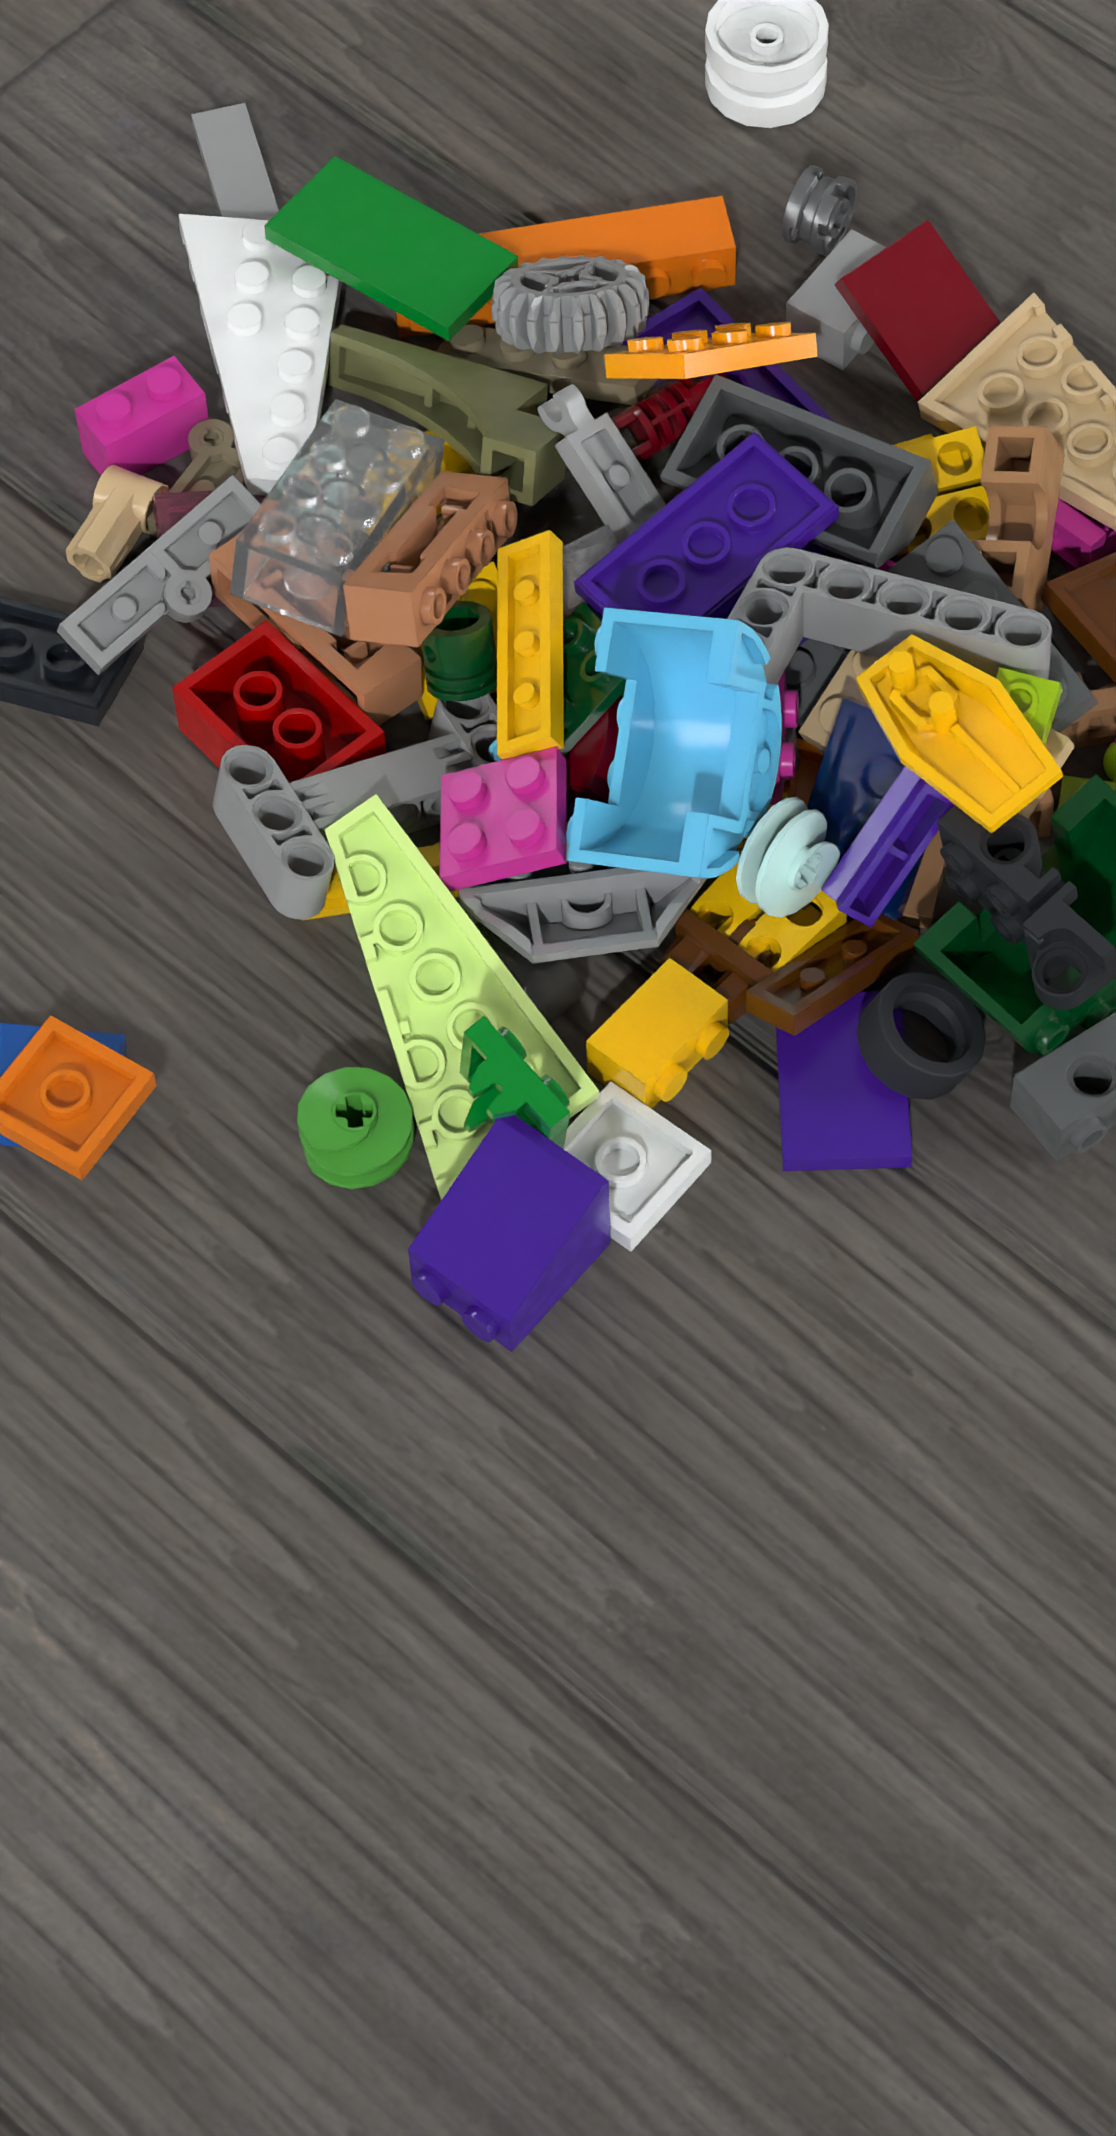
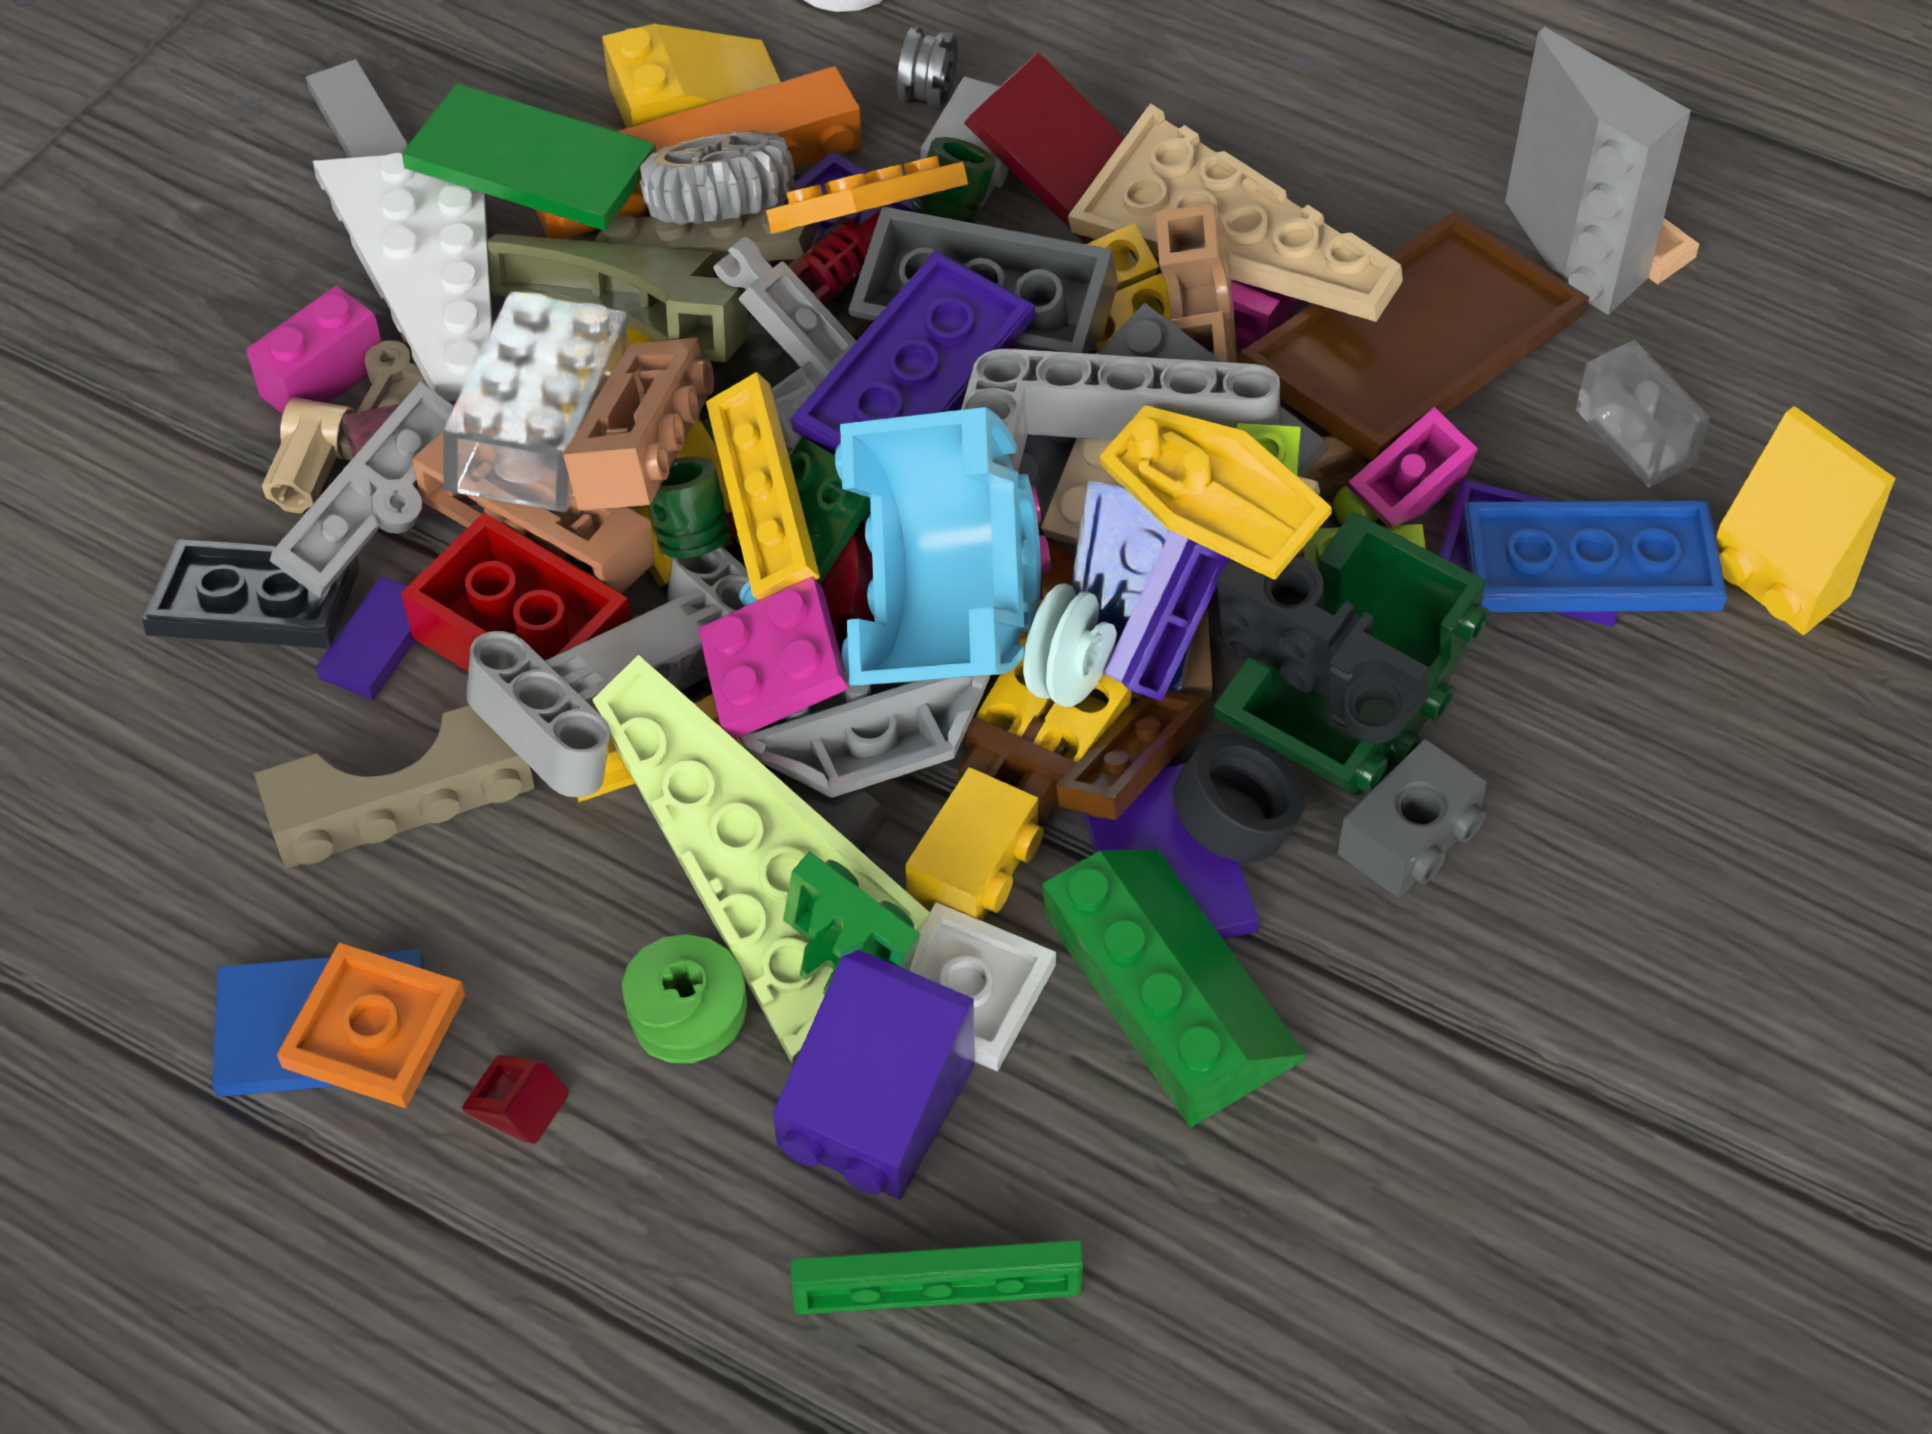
camera: 15 degrees left, 5 degrees down
(63, 887) = (327, 811): none -> dark tan arch
(137, 727) = (370, 642): none -> dark purple tile
(185, 1190) = (517, 1097): none -> dark red slope
(523, 1427) = (936, 1277): none -> green tile
(572, 172) = (676, 69): none -> yellow slope
(810, 1195) = (1169, 980): none -> green slope
(812, 375) = (964, 201): none -> dark green piece

